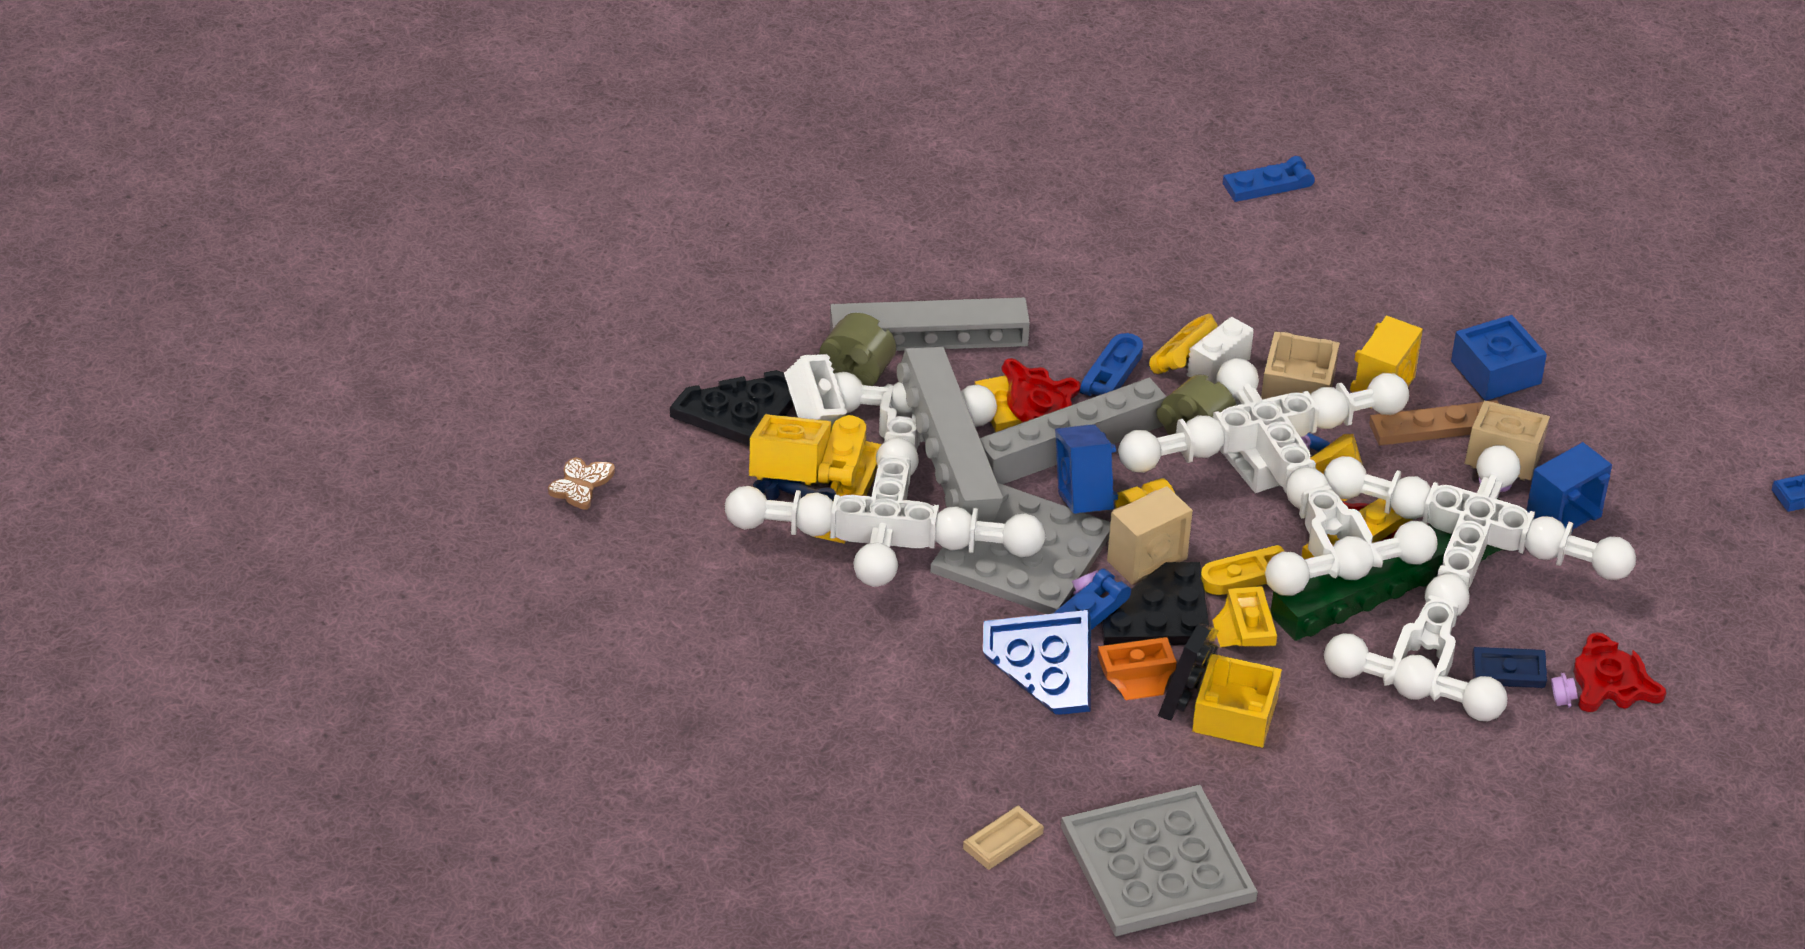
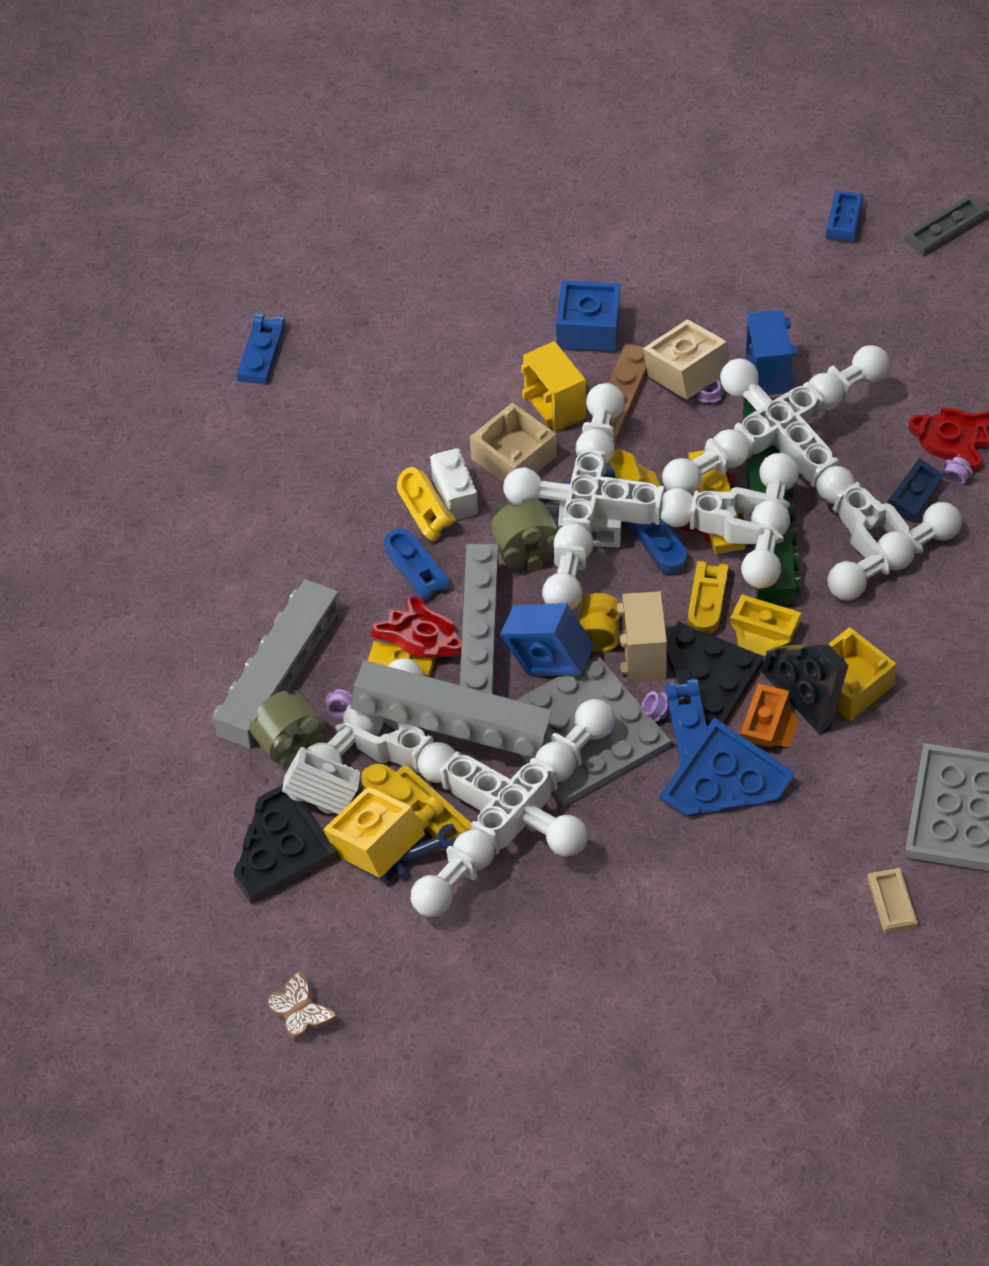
camera: 55 degrees left, 10 degrees up
(1276, 520) = (661, 545): none -> blue plate

